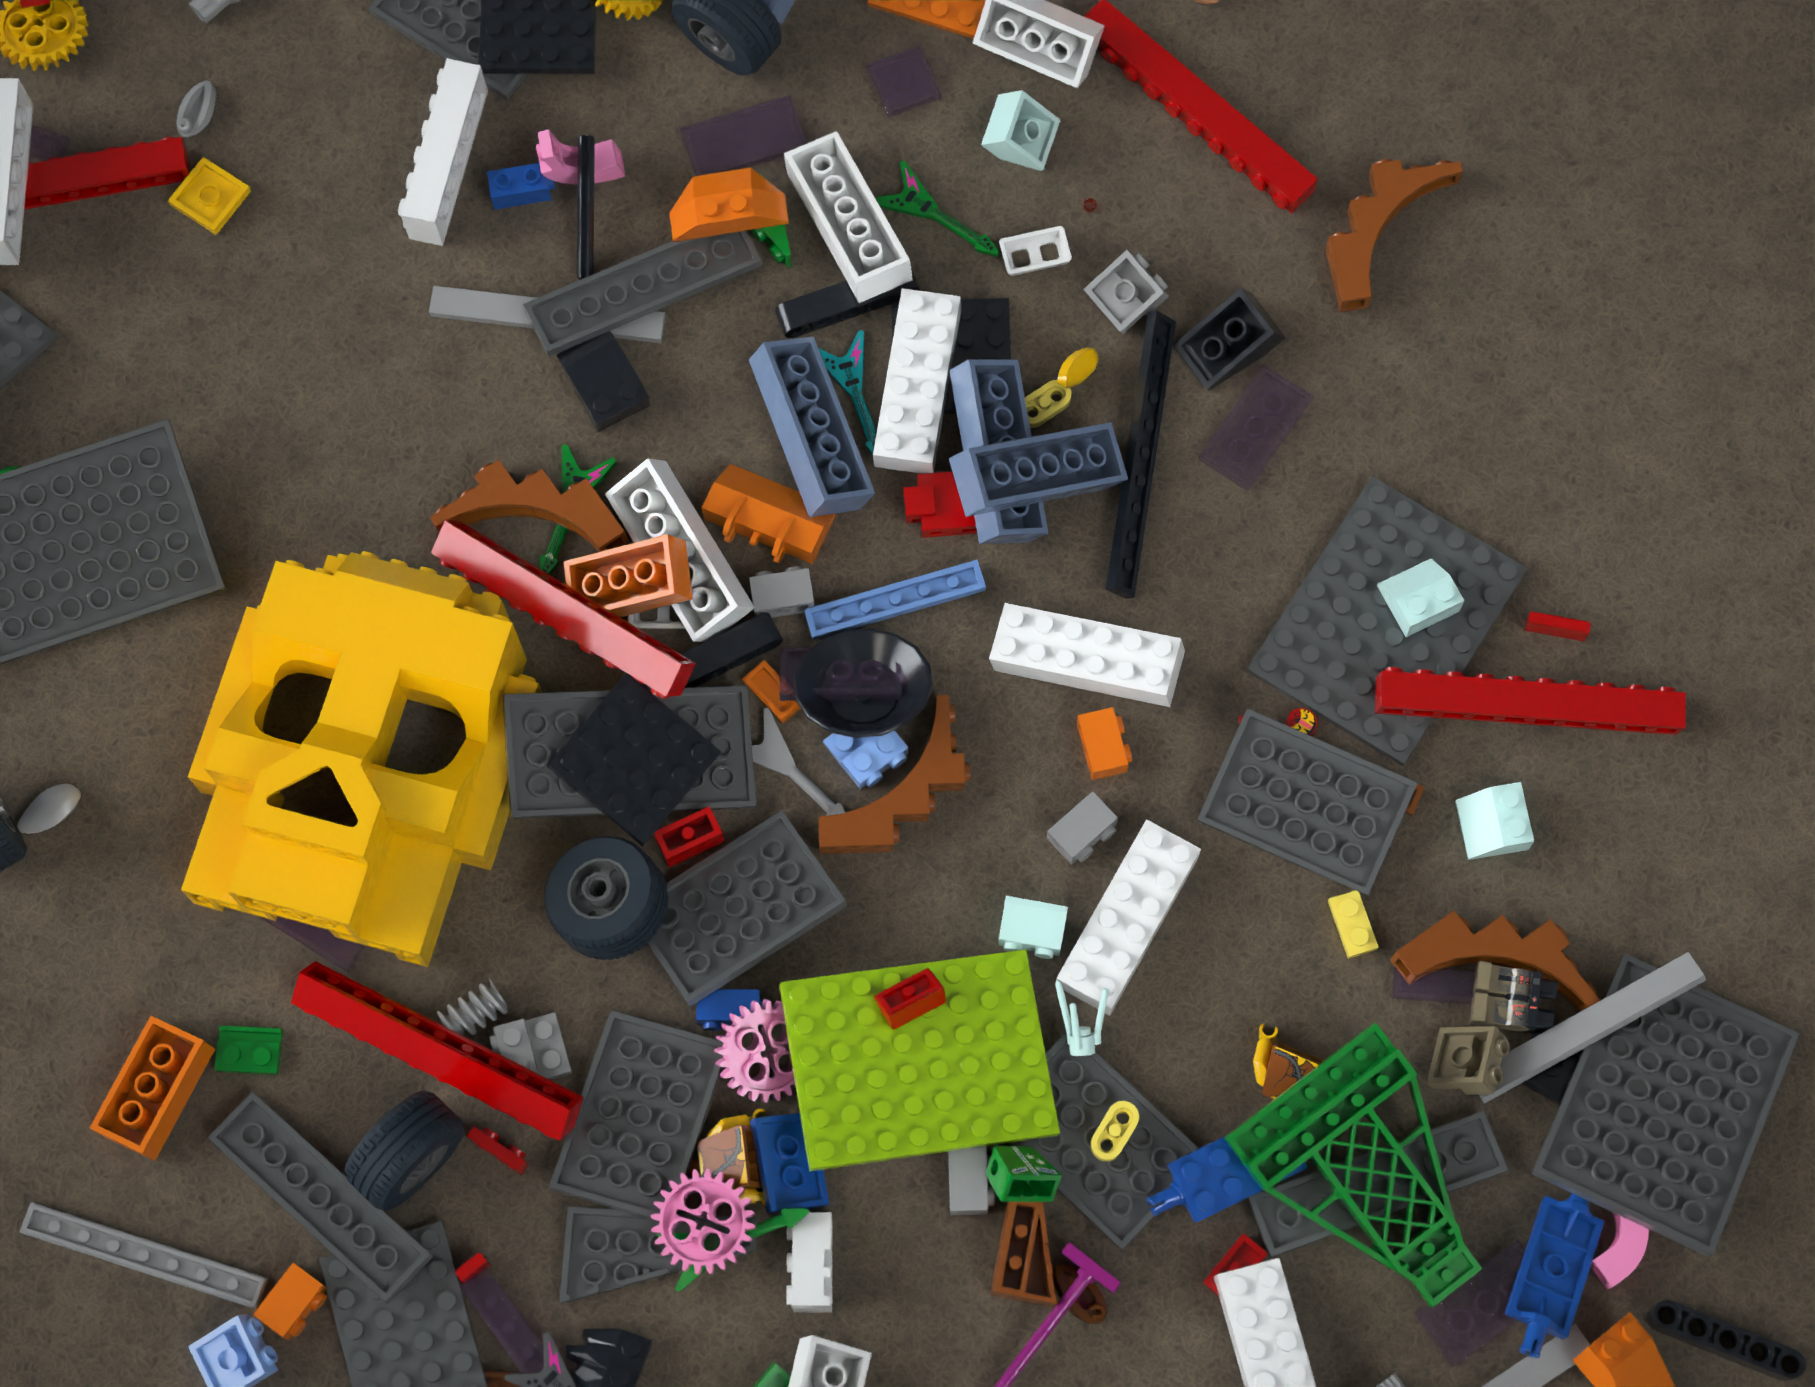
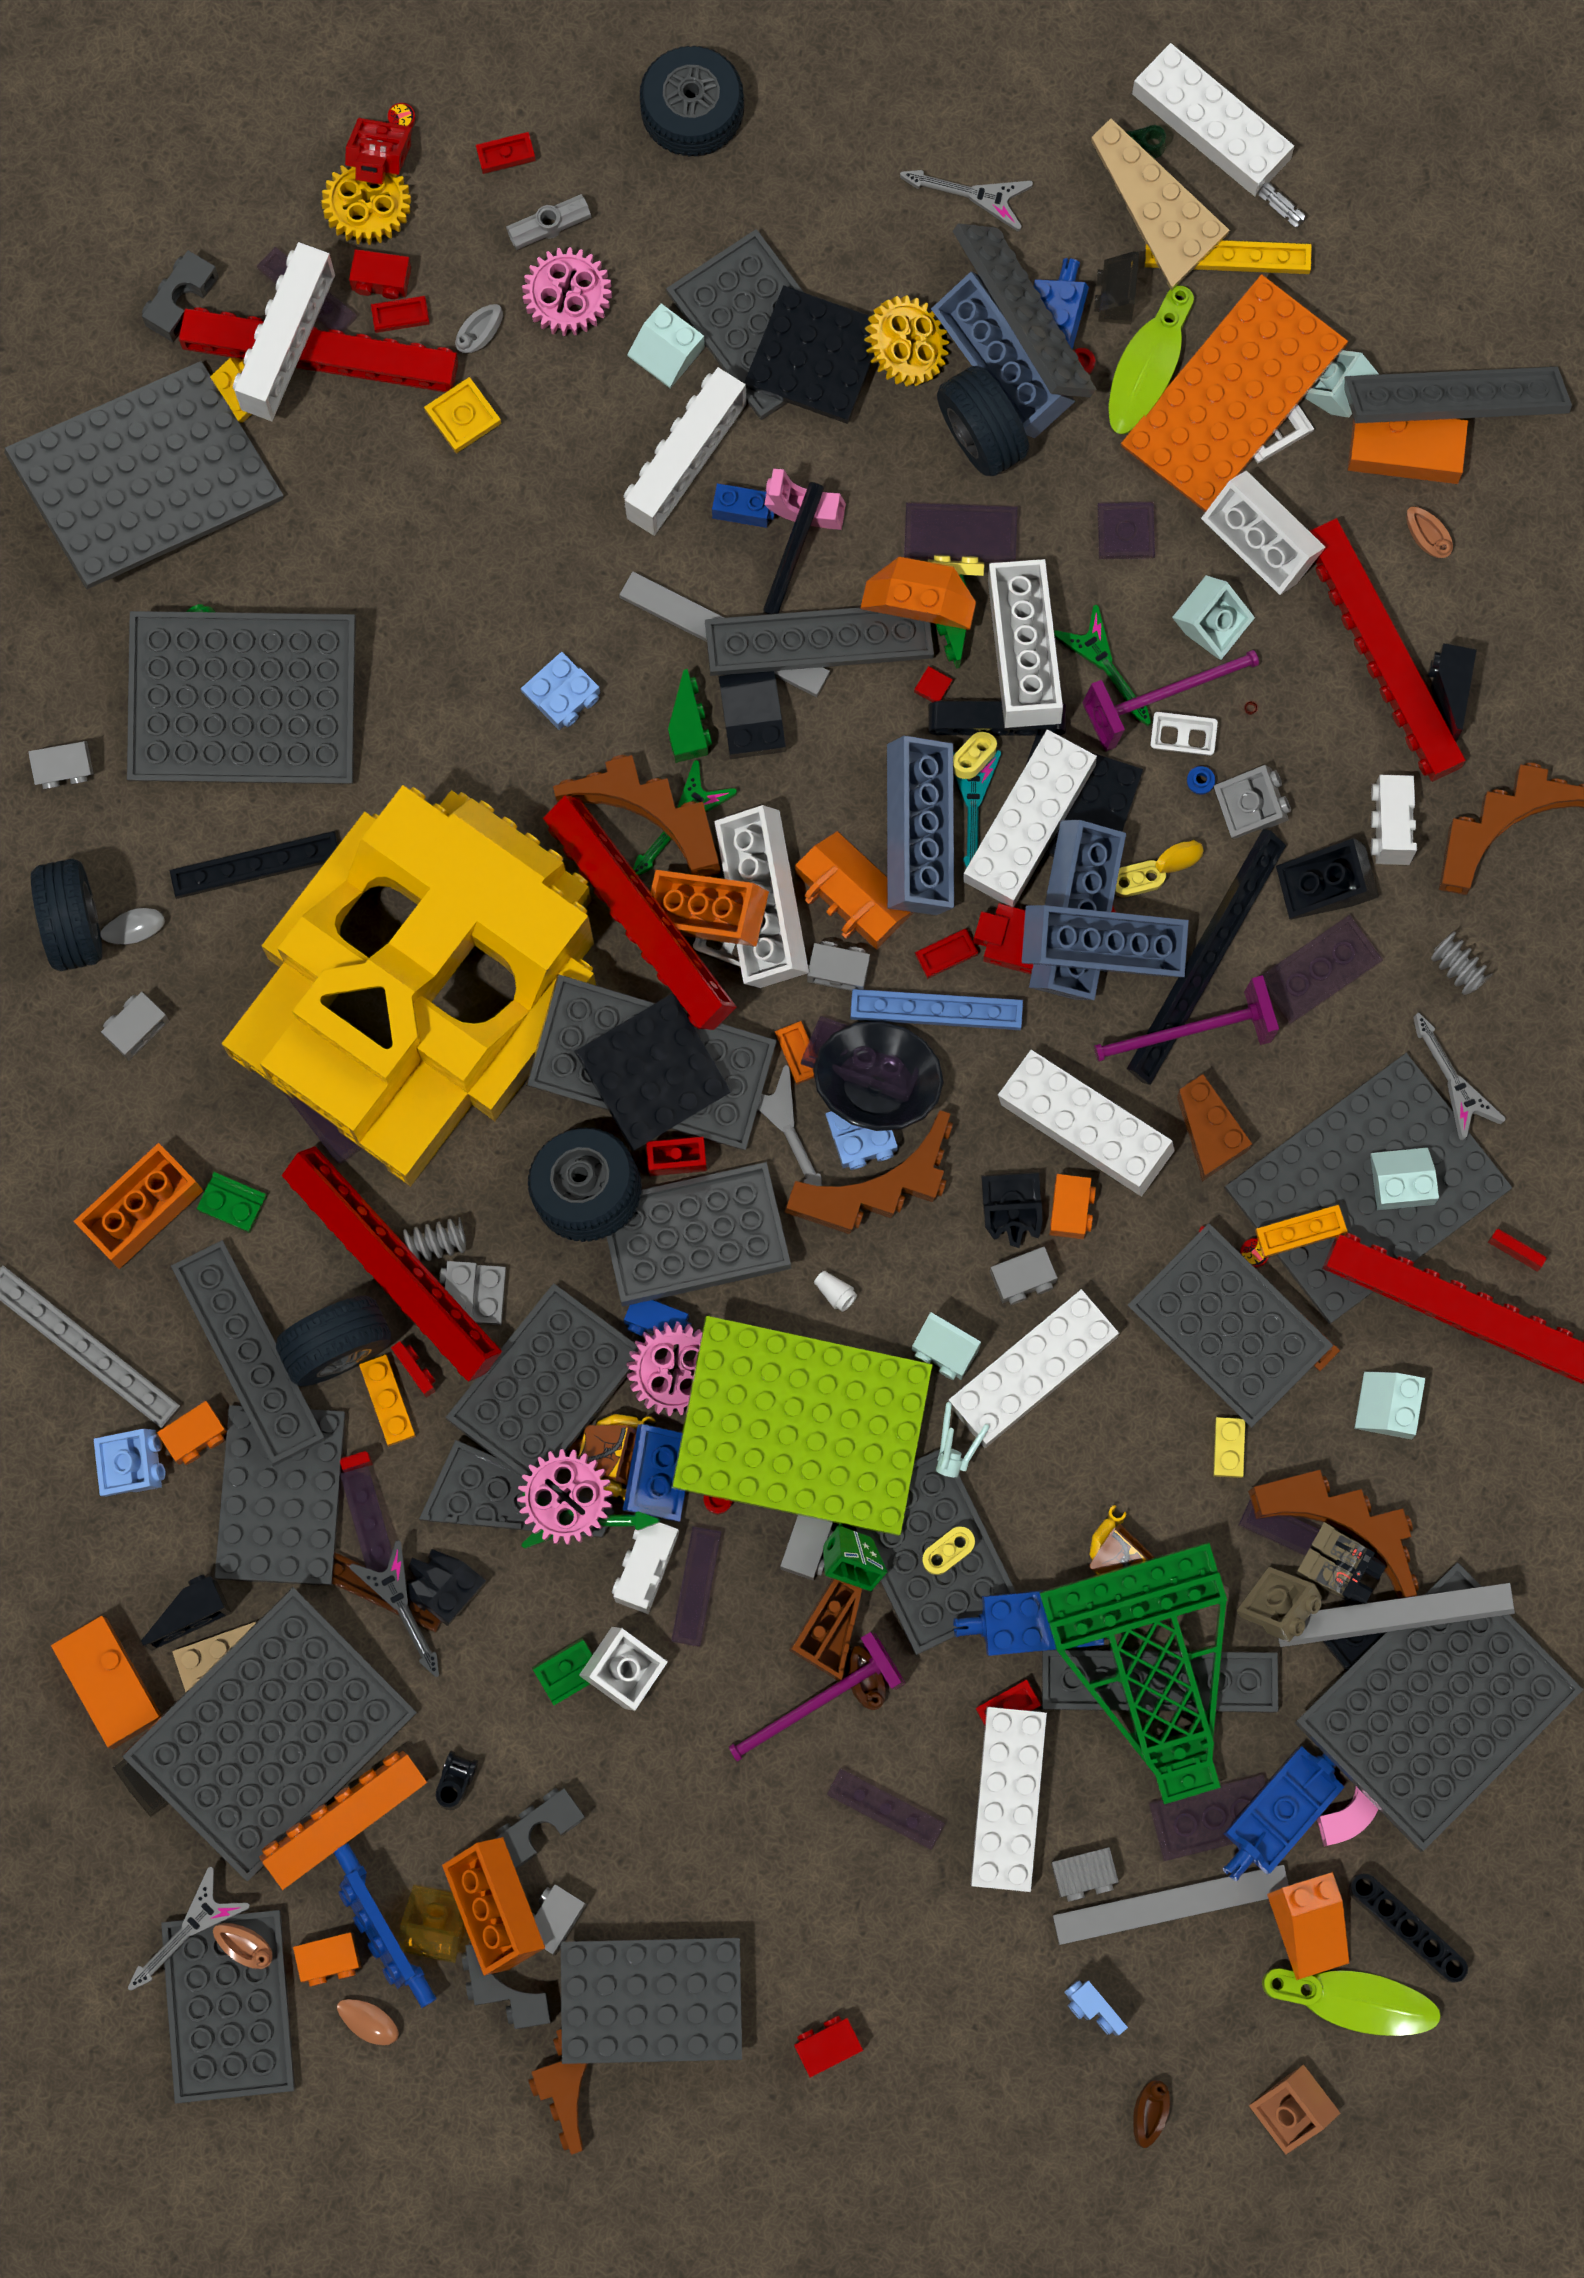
camera: 20 degrees right, 5 degrees up
(78, 90) = (380, 274): none -> red brick
(85, 907) = (134, 1025): none -> light grey brick
(112, 122) = (400, 314): none -> red tile
(150, 705) = (253, 865): none -> black tile
(244, 46) = (542, 285): none -> bright pink gear
(388, 61) = (666, 346): none -> light aqua slope
(405, 425) = (561, 691): none -> light blue plate
(482, 1193) = (387, 1400): none -> light orange plate
(542, 416) = (685, 726): none -> green slope
(732, 649) = (775, 1001): black beam -> none
(762, 165) = (968, 565): none -> light yellow plate
(771, 290) = (933, 685): none -> red tile
(834, 346) = (972, 757): none -> light yellow plate
(860, 1173) = (716, 1505): none -> red tile
(871, 1265) = (696, 1586): none -> clear purple tile
(883, 542) = (946, 953): none -> red tile
(900, 913) = (836, 1291): none -> white cone
(911, 998) = (814, 1371): red slope -> none
(954, 258) = (1105, 715): none -> magenta tile
(1044, 763) = (1012, 1205): none -> black plate
(1066, 296) = (1196, 787): none -> blue plate
(1211, 616) = (1211, 1127): none -> dark orange wedge
(1213, 484) = (1258, 1010): none -> magenta tile
(1271, 260) = (1393, 820): none -> white wedge
(1276, 111) = (1451, 683): none -> black slope
(1340, 683) = (1301, 1231): none -> light orange plate
(1390, 373) = (1460, 964): none -> light grey piece
(1445, 499) = (1463, 1096): none -> light grey piece

